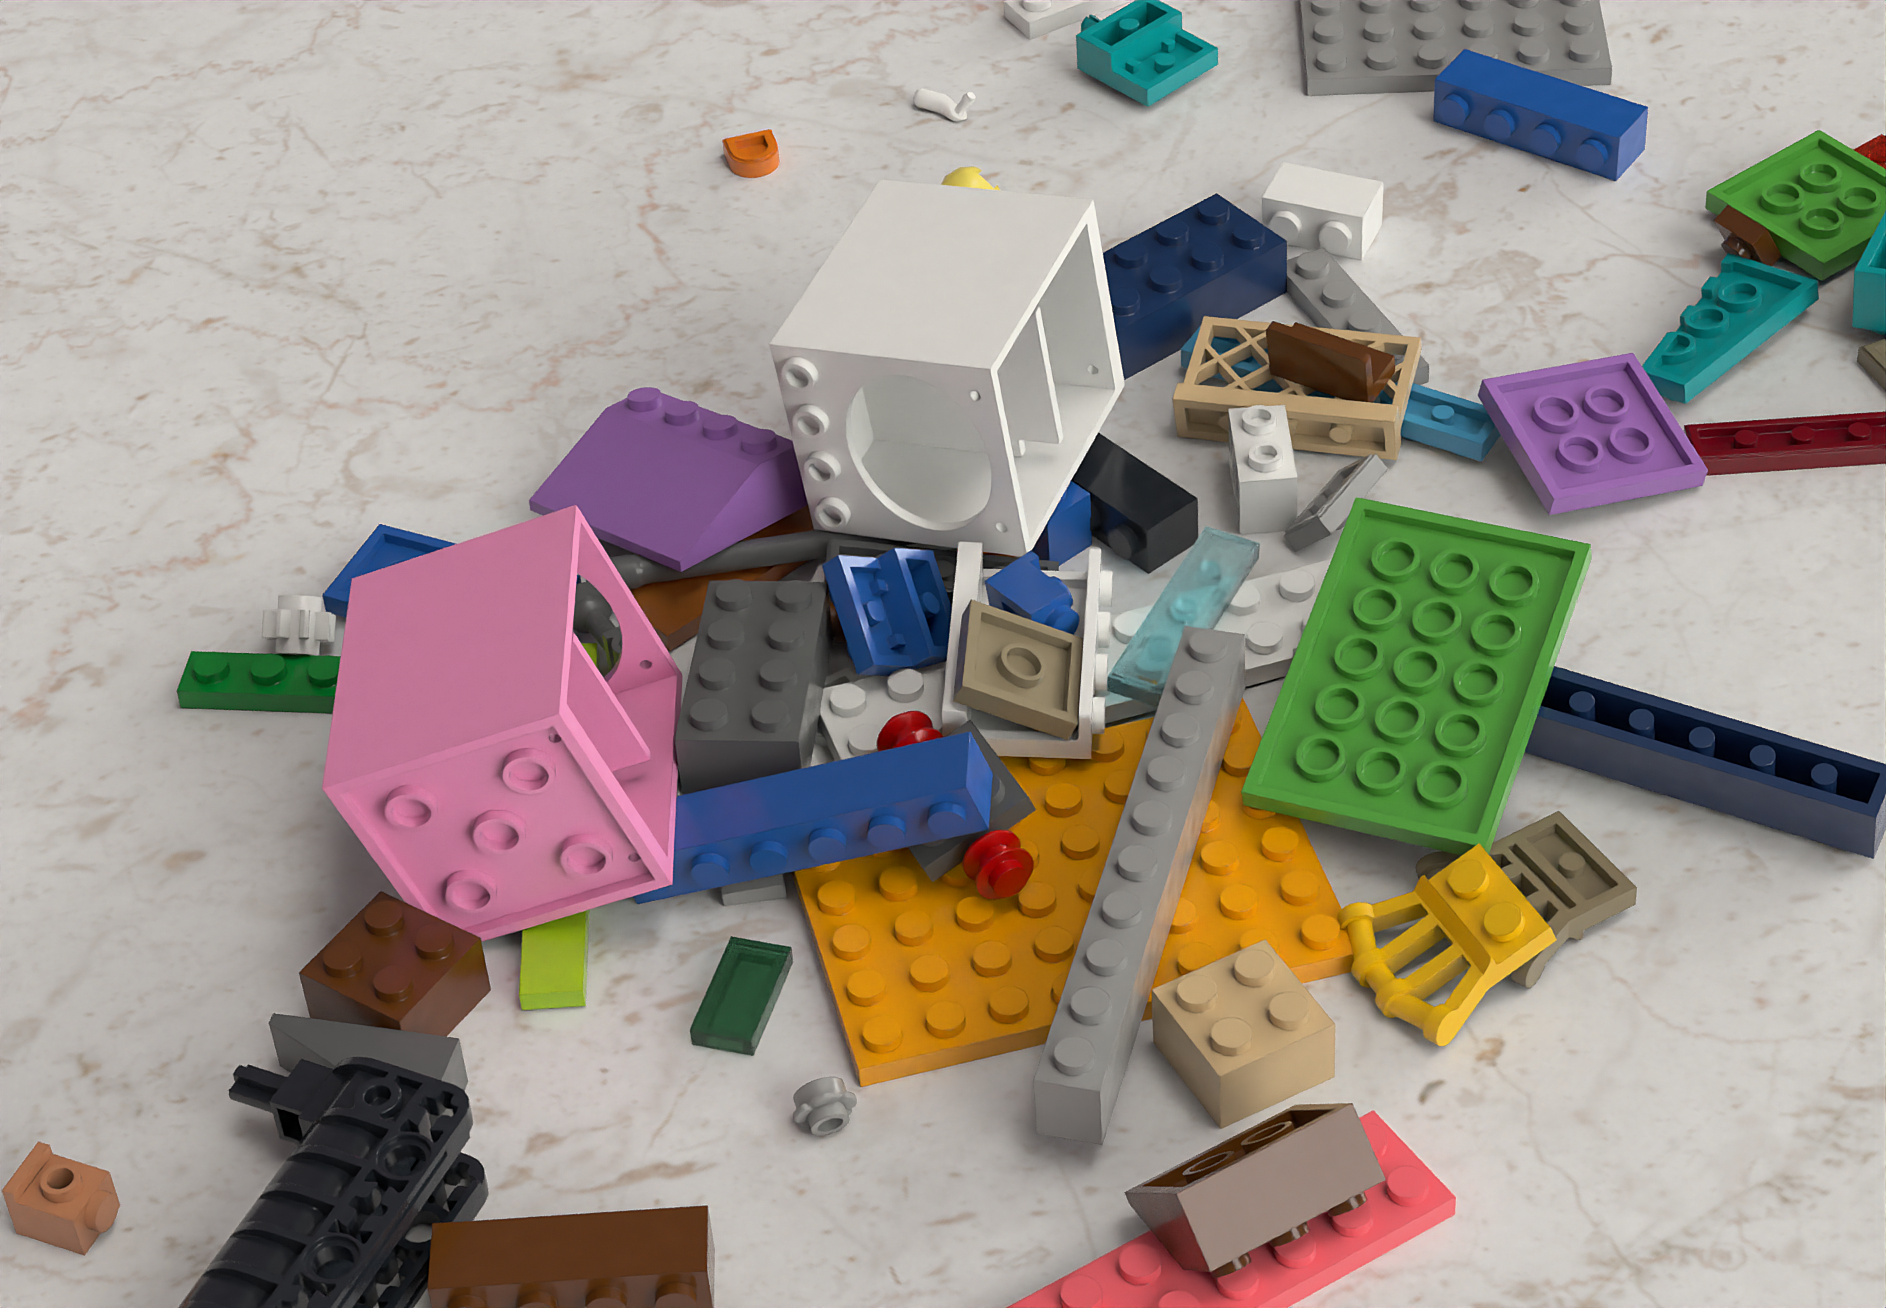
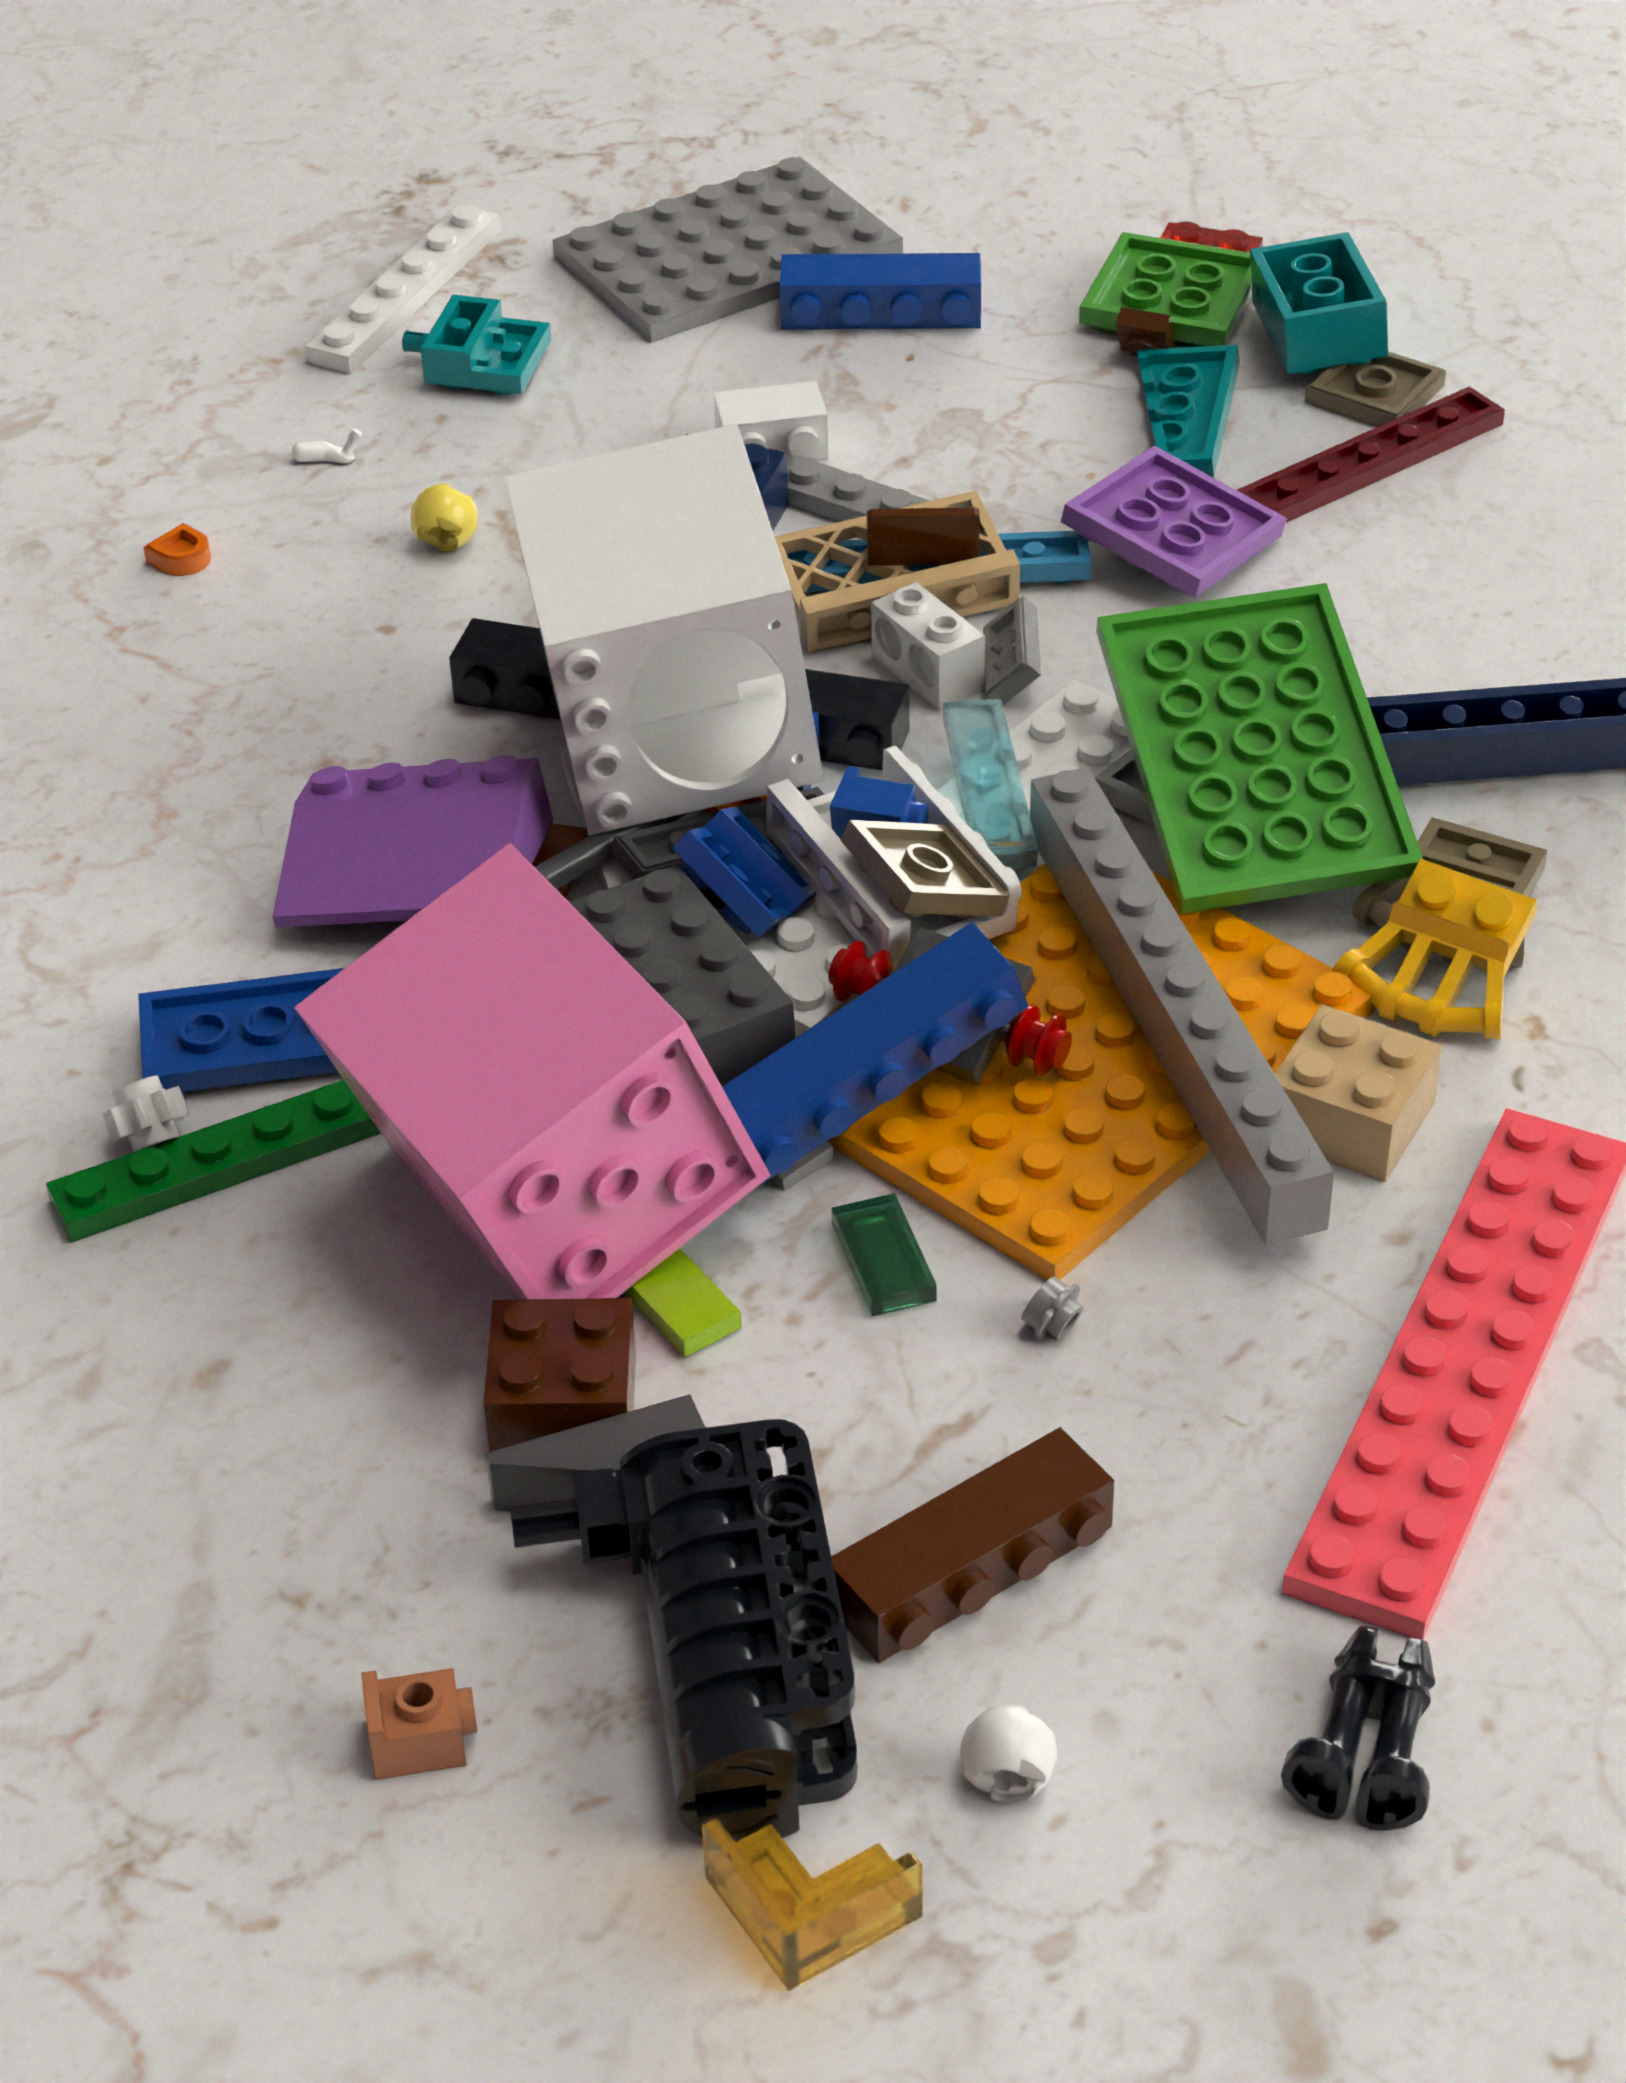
camera: 35 degrees left, 0 degrees up
(1259, 1187) = (1501, 1195): slope -> none

